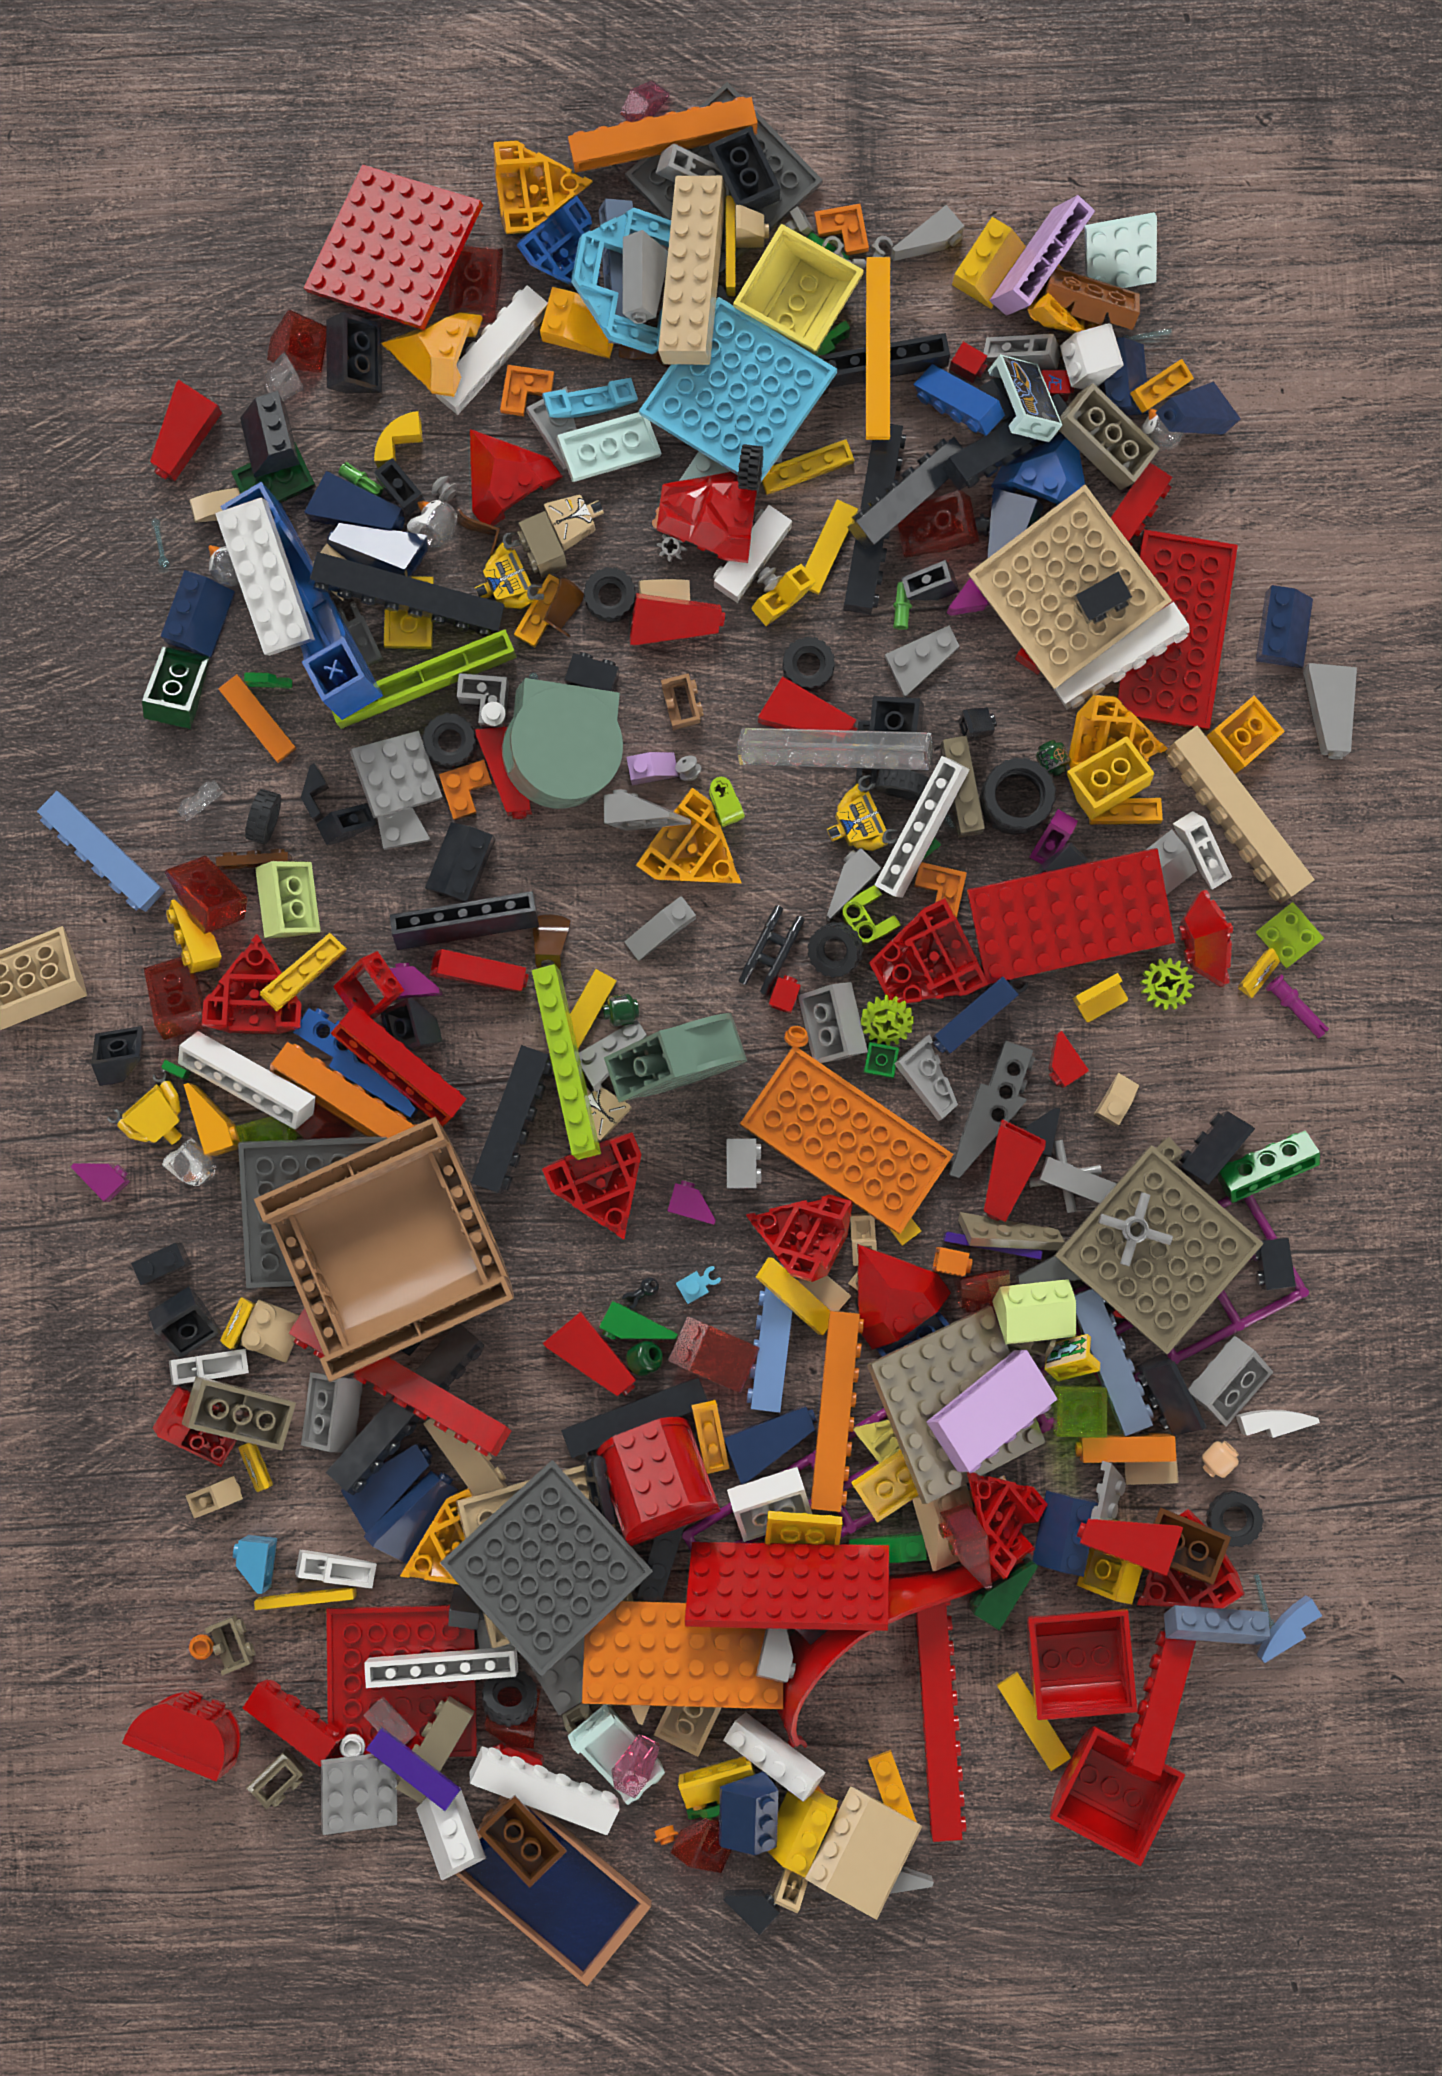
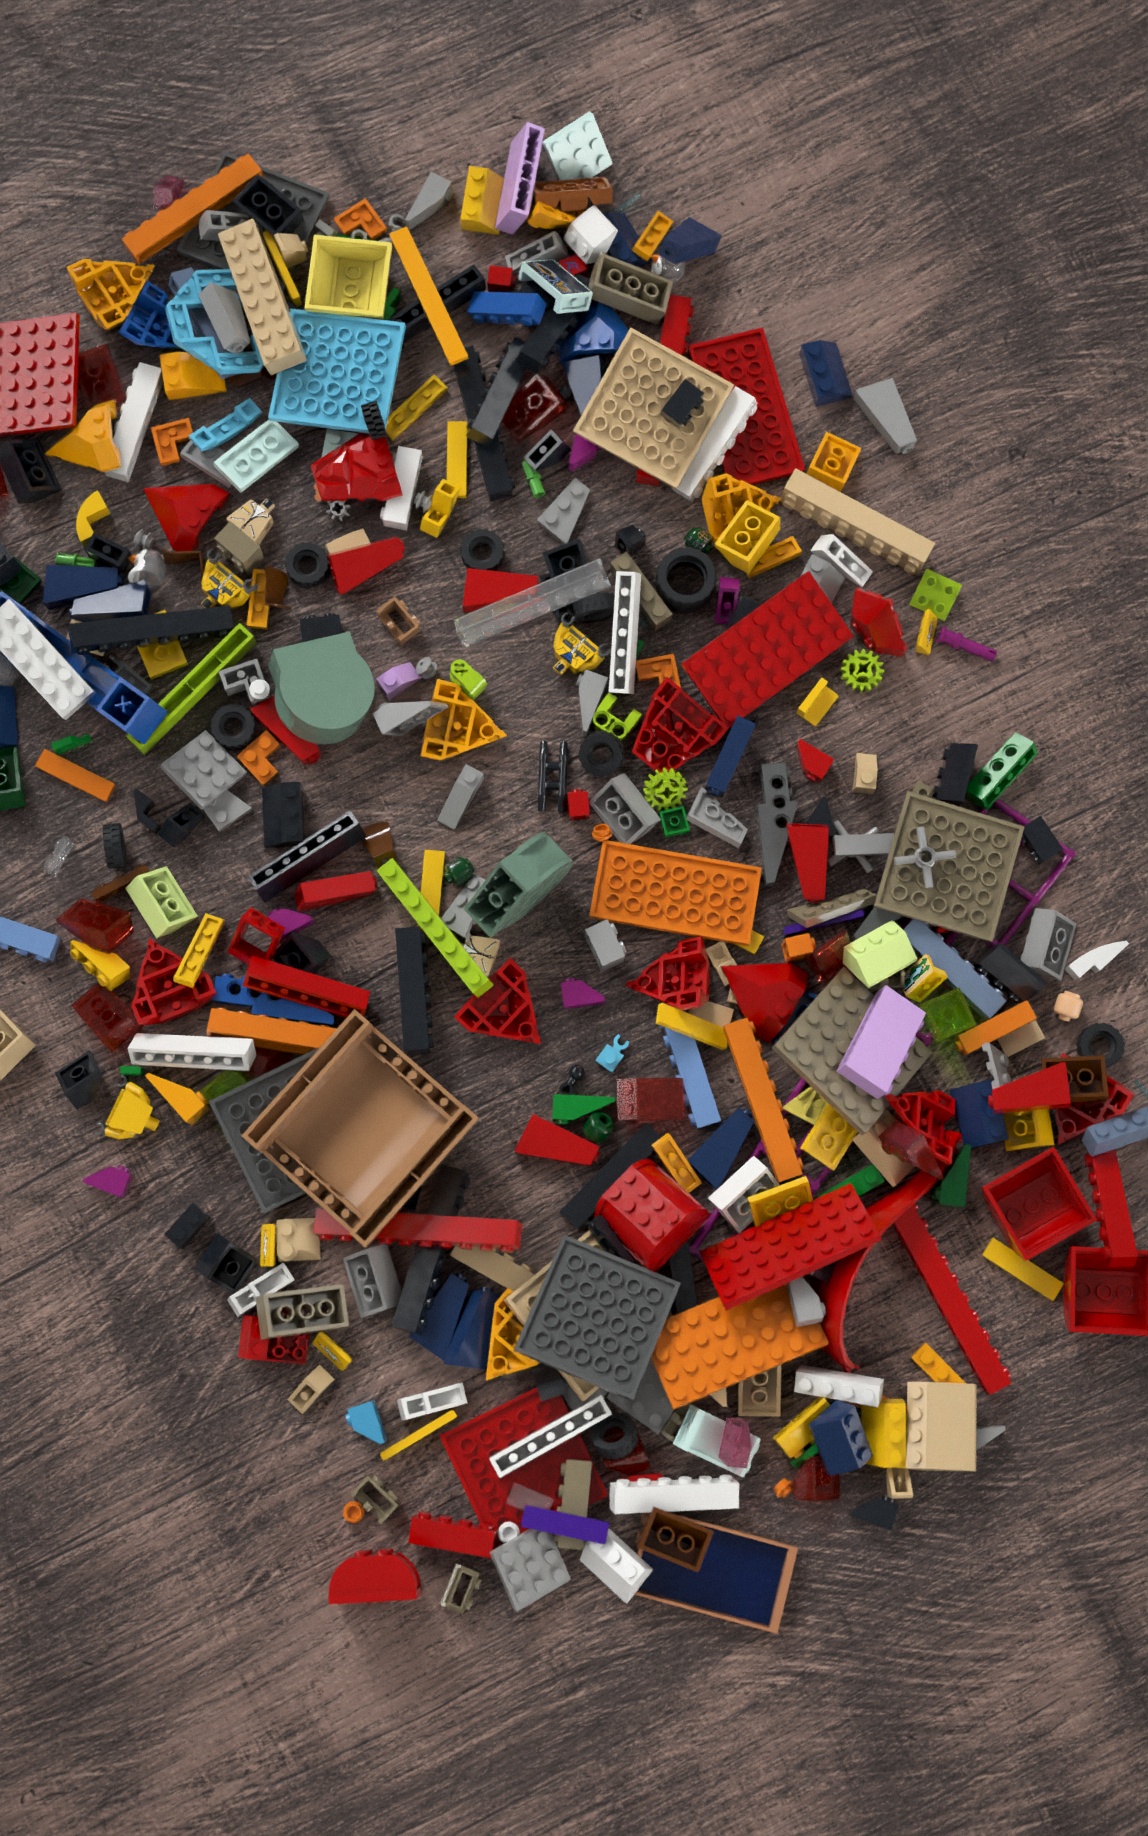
camera: 30 degrees left, 5 degrees down
(190, 1163) = (176, 1137): clear piece -> none

